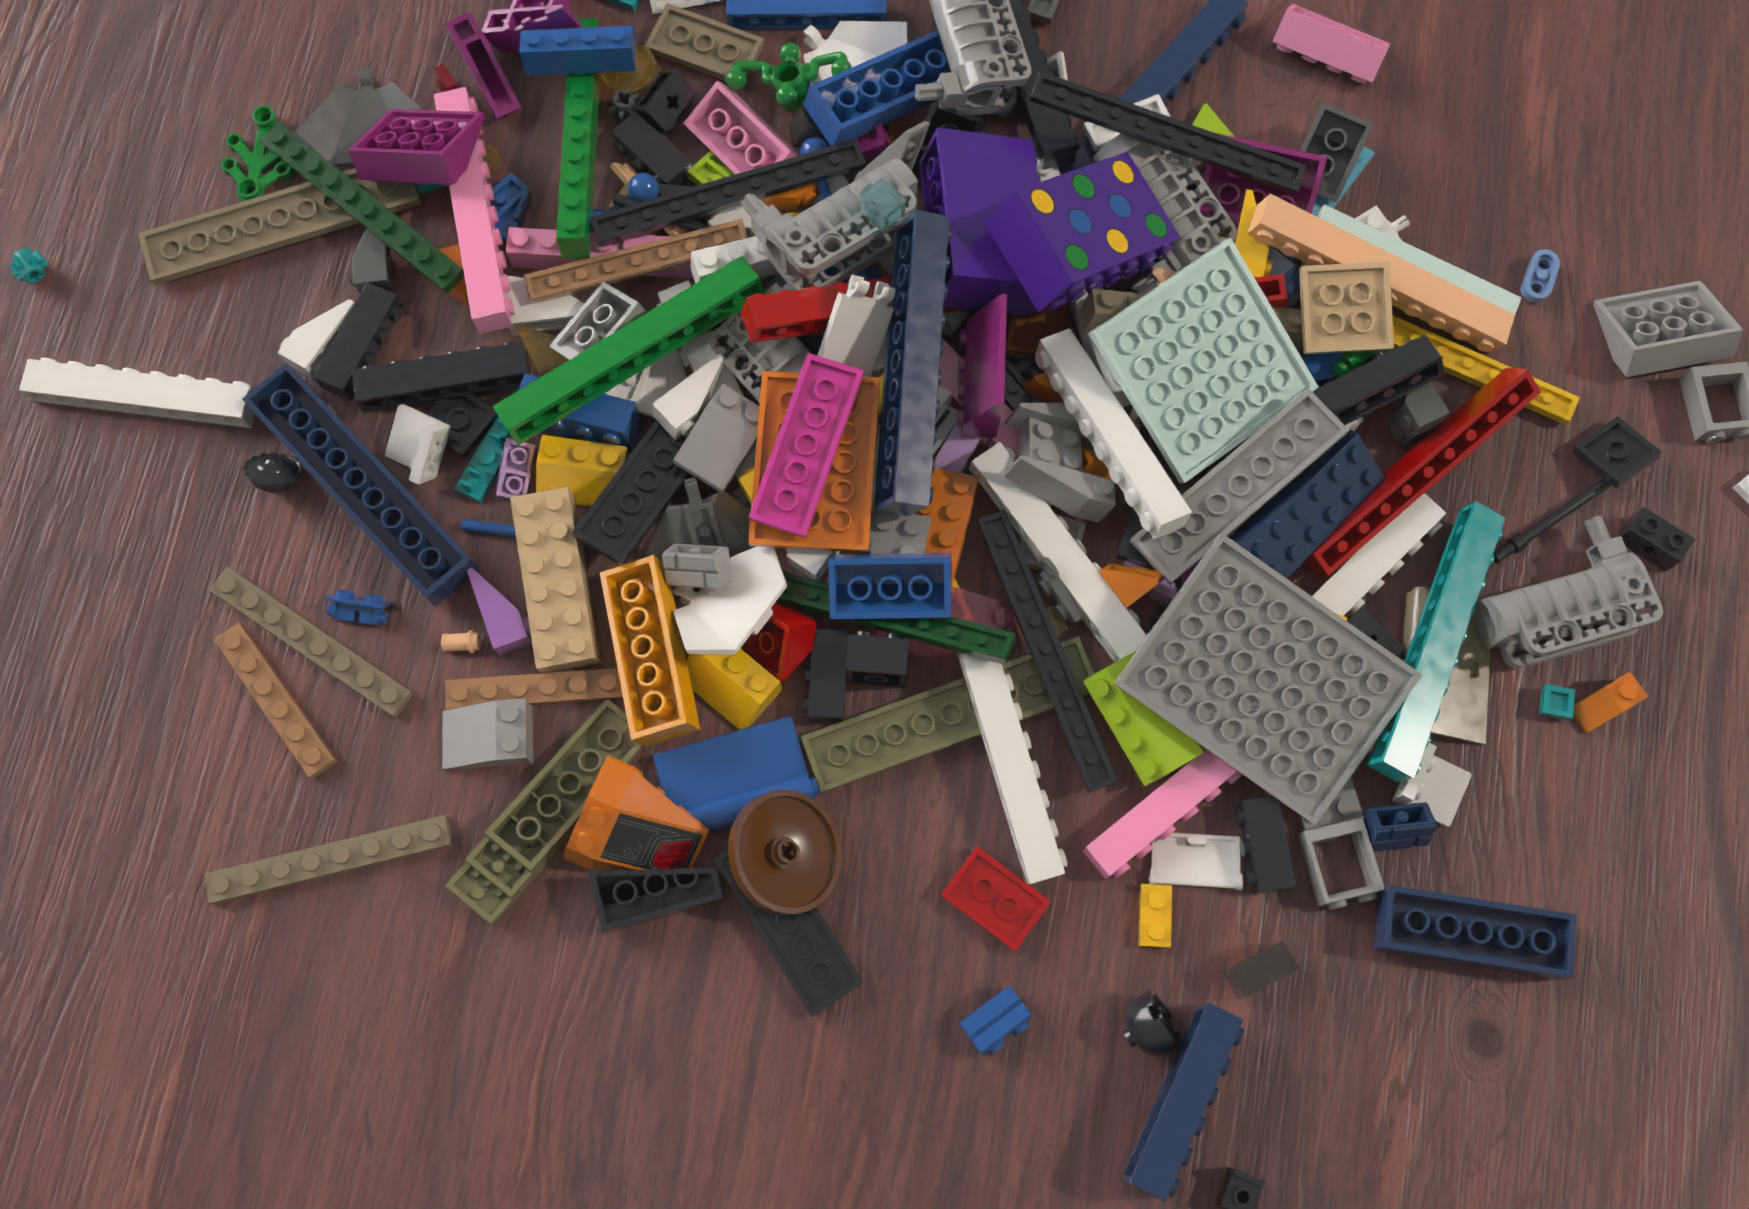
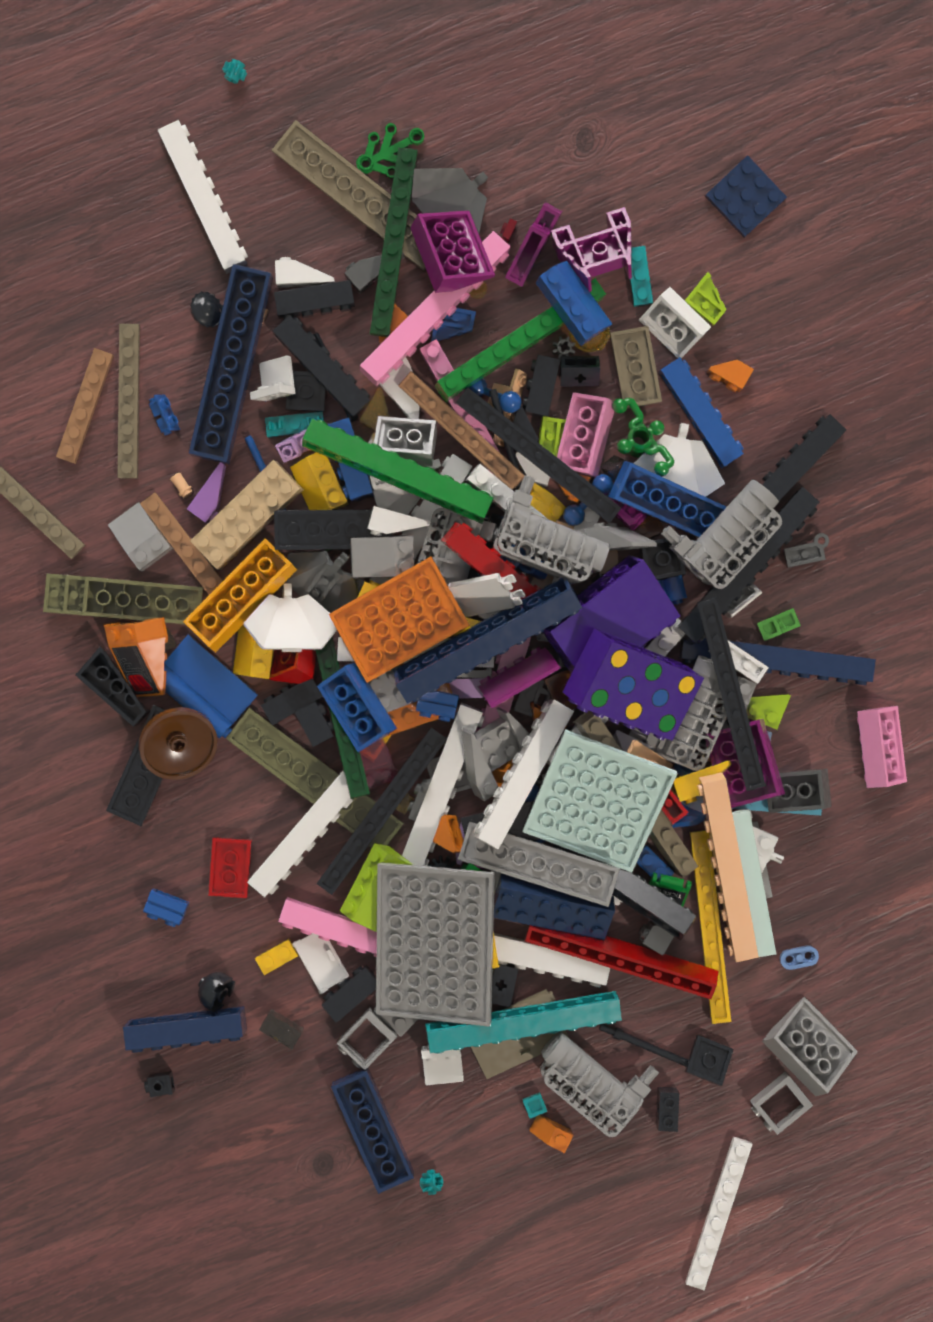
camera: 60 degrees right, 15 degrees up
(697, 566) = (302, 591): light grey brick -> none
(806, 445) = (401, 611): dark pink plate -> none
(882, 204) = (565, 563): clear light blue brick -> none
(954, 488) = (438, 704): none -> blue brick
(1112, 68) = (779, 624): none -> bright green slope
(1346, 308) = (687, 861): tan plate -> none
(1399, 826) = (405, 1058): dark blue brick -> none
(1592, 901) = (431, 1182): none -> teal gear

